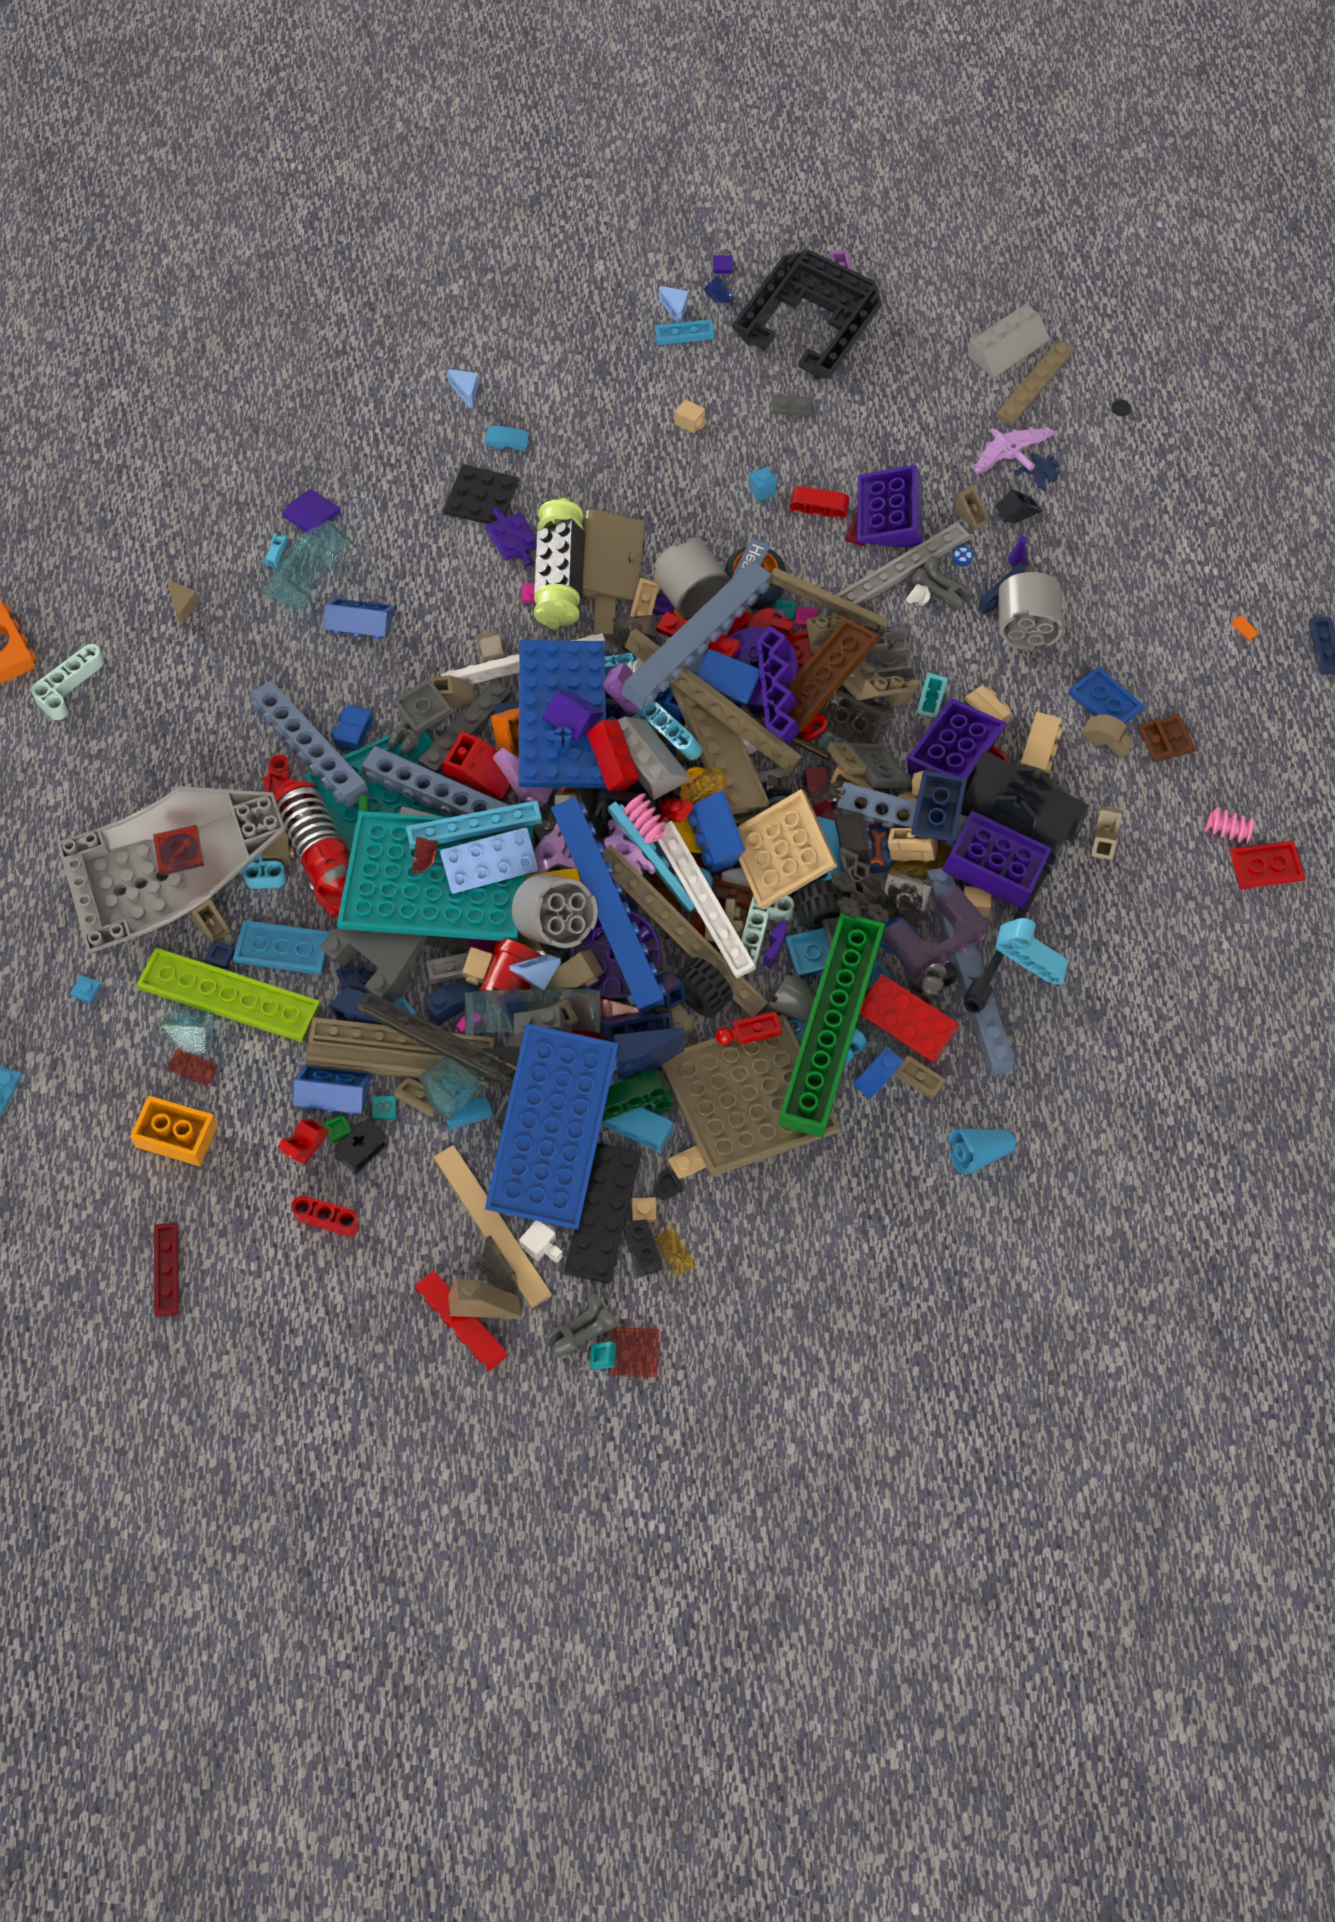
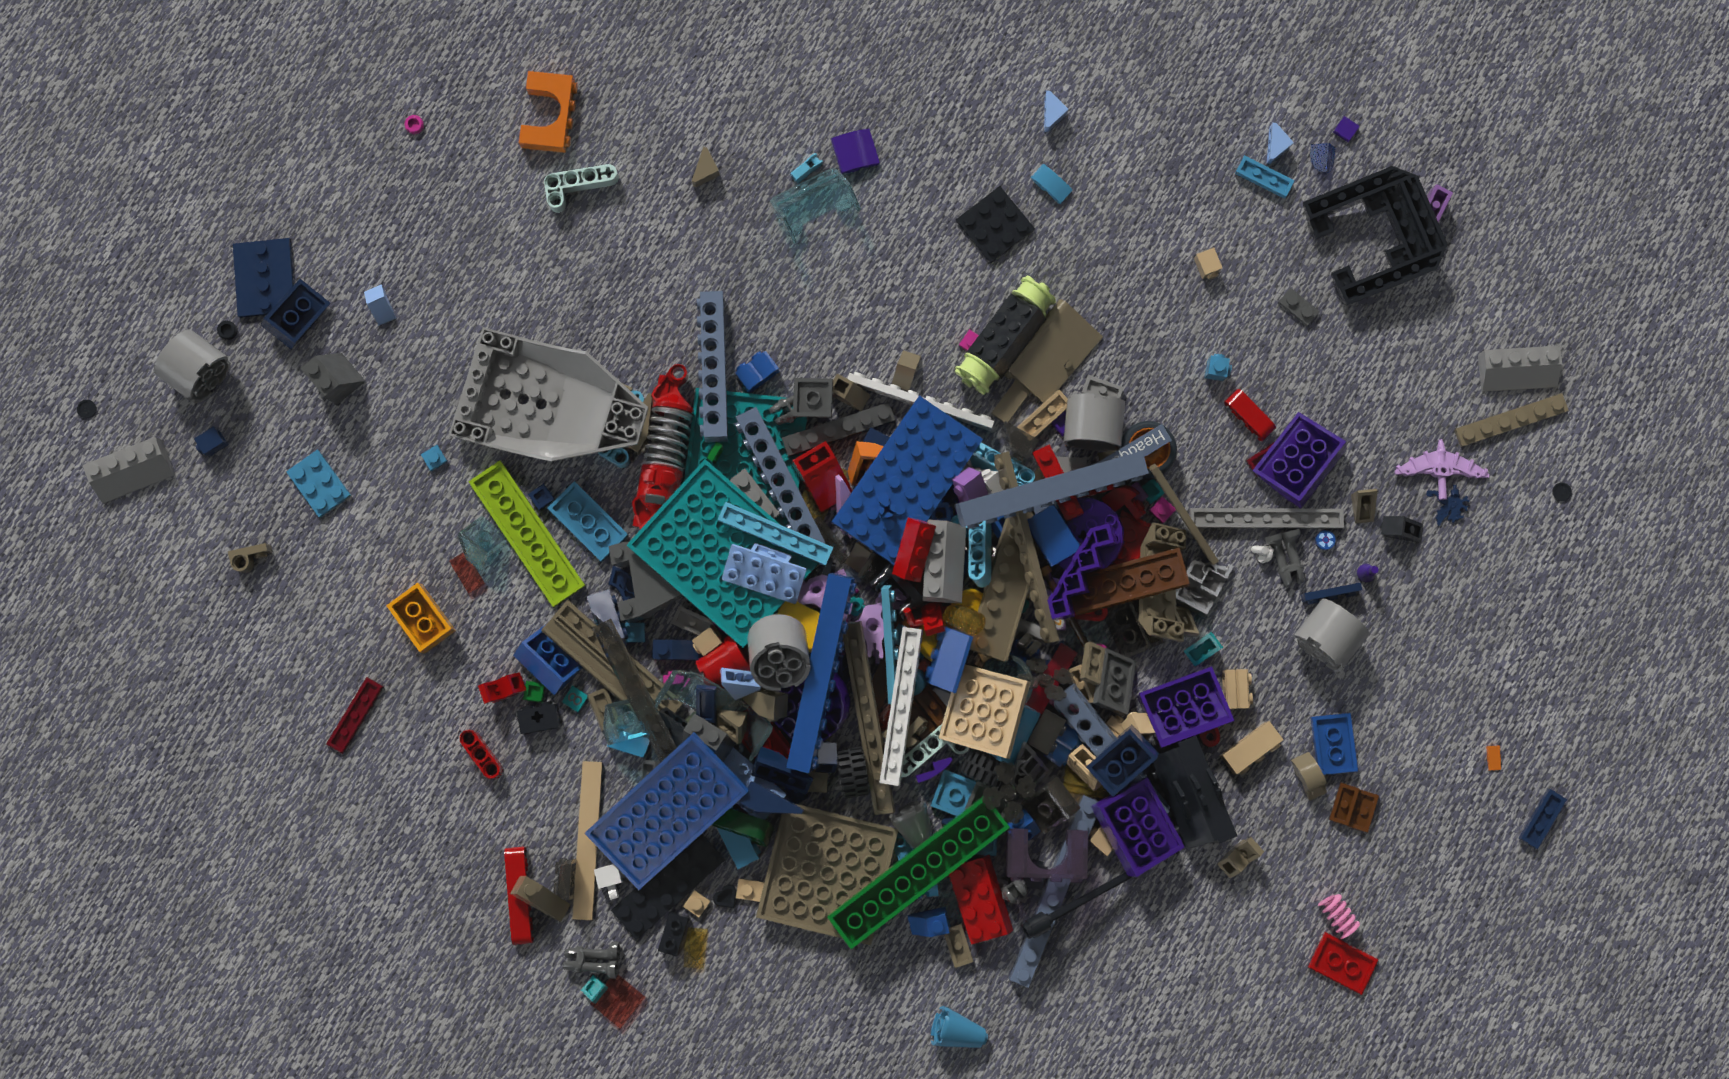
camera: 35 degrees right, 20 degrees up
(178, 850) = (558, 400): clear red tile -> none
(209, 921) = (550, 470): dark tan slope -> none
(358, 618) = (826, 274): slope -> none
(424, 854) = (722, 534): clear red brick -> none
(512, 536) = (991, 281): dark purple plate -> none
(571, 712) = (909, 492): dark purple slope -> none
(645, 820) = (900, 620): bright pink piece -> none
(750, 1029) = (862, 828): red plate -> none
(877, 858) = (1055, 758): copper piece -> none
(1018, 944) = (1105, 916): medium azure beam -> none

